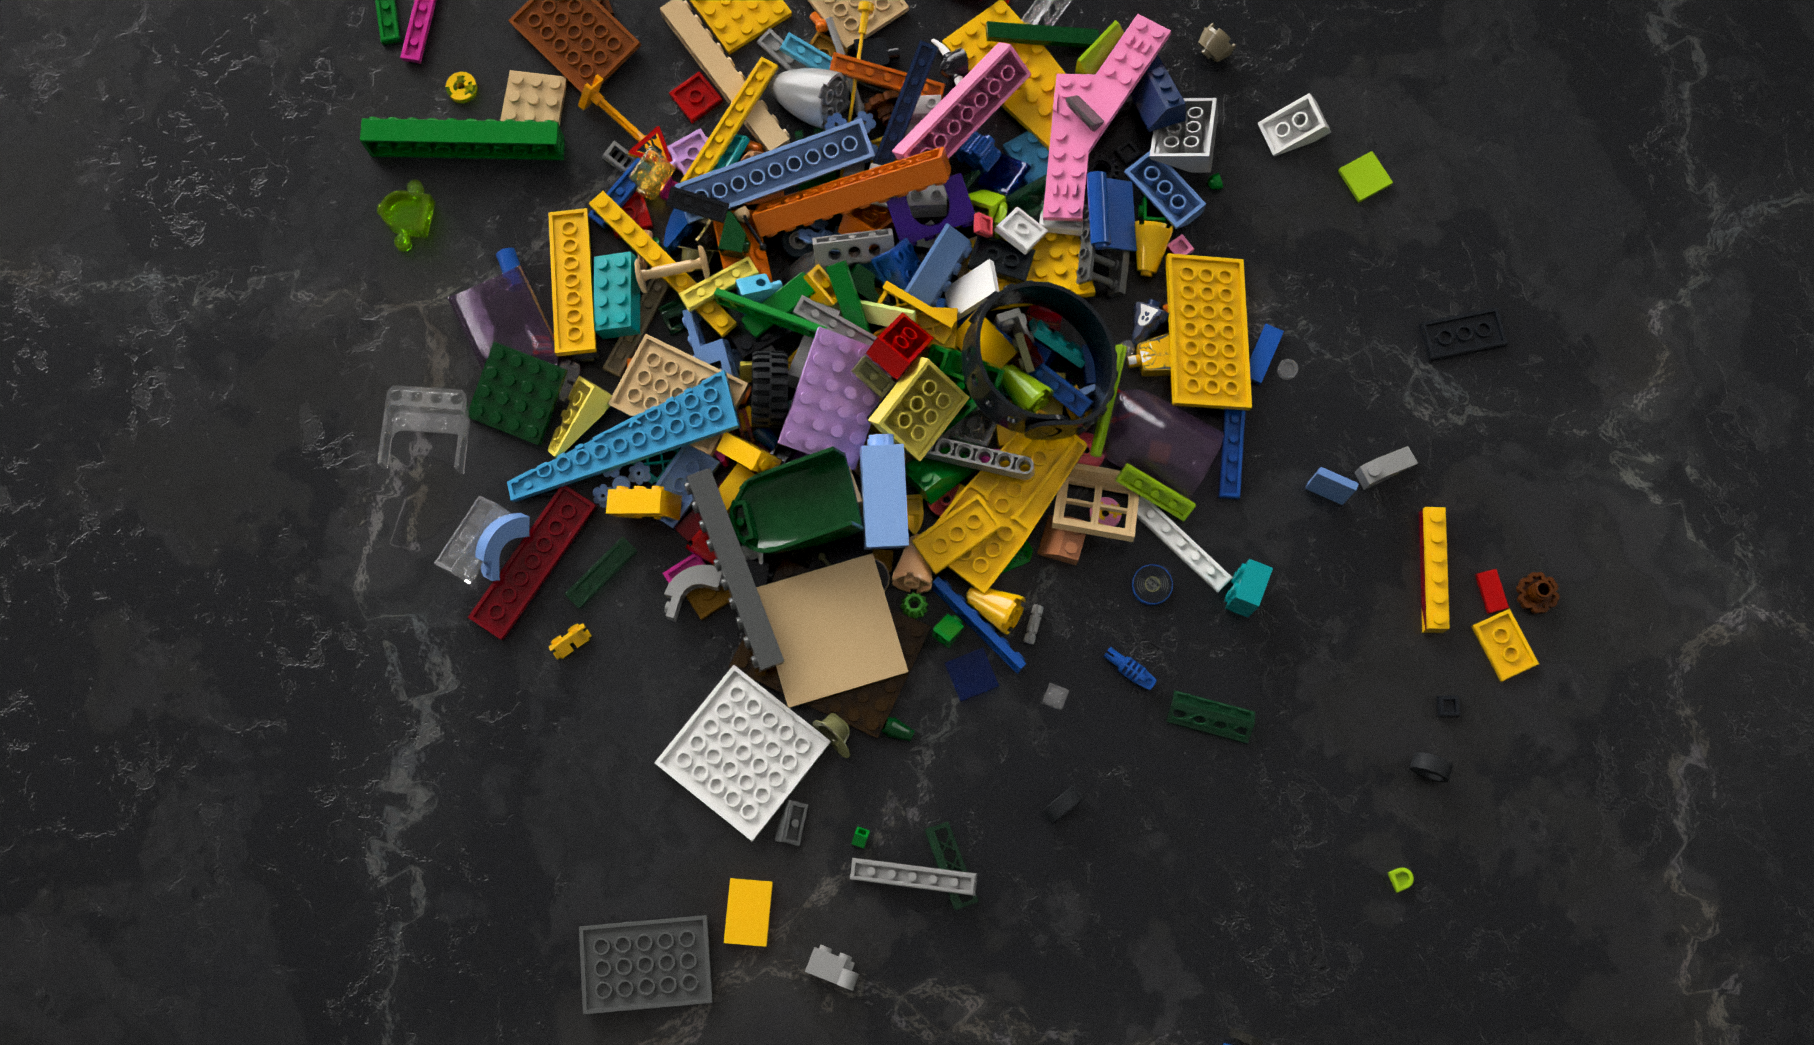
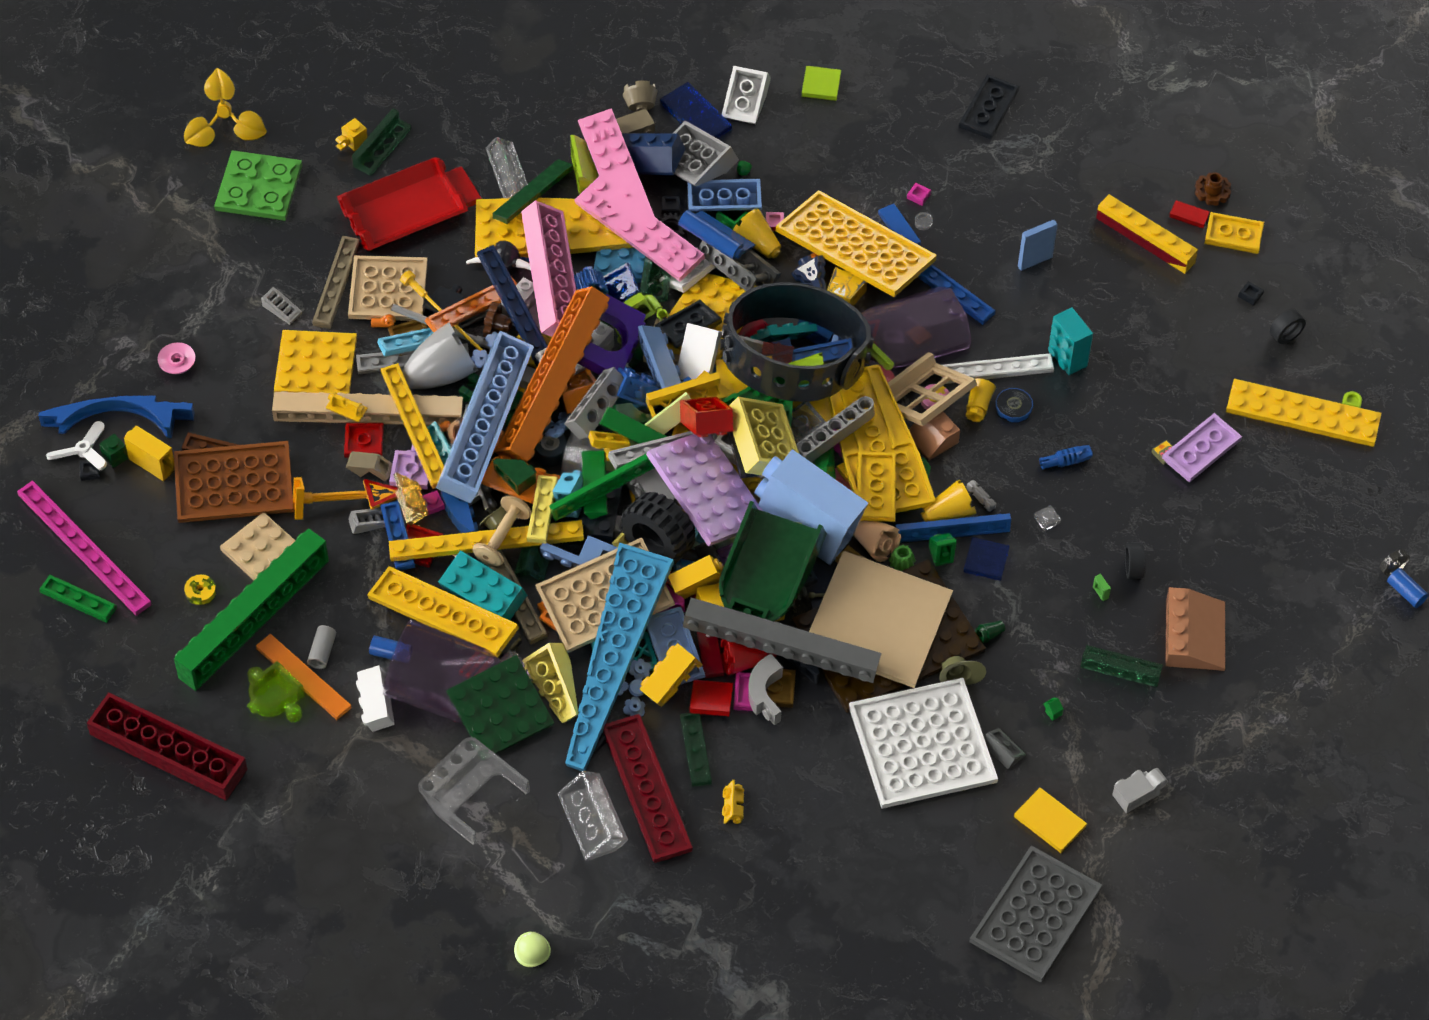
camera: 55 degrees left, 20 degrees down
(296, 175) = (167, 746): none -> dark red brick
(323, 583) = (532, 949): none -> yellowish green helmet
(440, 224) = (311, 682): none -> orange tile
(461, 280) = (375, 706): none -> white brick
(474, 216) = (321, 647): none -> light grey pin
(495, 538) = (612, 796): medium blue arch -> none
(655, 550) = (711, 698): none -> red tile
(671, 119) = (362, 463): none -> dark tan slope
(697, 204) = (470, 475): black tile -> none
(703, 59) = (346, 407): none -> yellow hinge
(742, 215) = (500, 454): hinge -> none
(872, 376) = (714, 448): olive plate -> none
(914, 876) = (1111, 688): light grey tile -> none
(983, 225) = (654, 313): coral tile -> none
(1015, 793) = (1101, 587): none -> bright green tile
(1020, 344) = (781, 352): olive plate -> none
(1021, 230) = (677, 297): white tile -> none
(1035, 906) = (1194, 630): none -> nougat slope
(1084, 112) = (625, 199): dark grey slope -> none
(1129, 552) = (979, 400): none -> yellow plant
(1155, 492) = (948, 352): lime tile -> none
(1182, 62) = (636, 122): none -> dark tan brick
(1208, 749) = (1159, 450): none -> tile
(1212, 712) = (1138, 428): clear green fence -> none
(1237, 779) = (1201, 447): none -> lavender plate
(1242, 100) = (690, 106): none -> clear blue tile
(1314, 344) = (919, 194): none -> dark pink tile
(1352, 844) = (1303, 412): none -> yellow plate
(1385, 467) = (1048, 207): light grey slope -> none

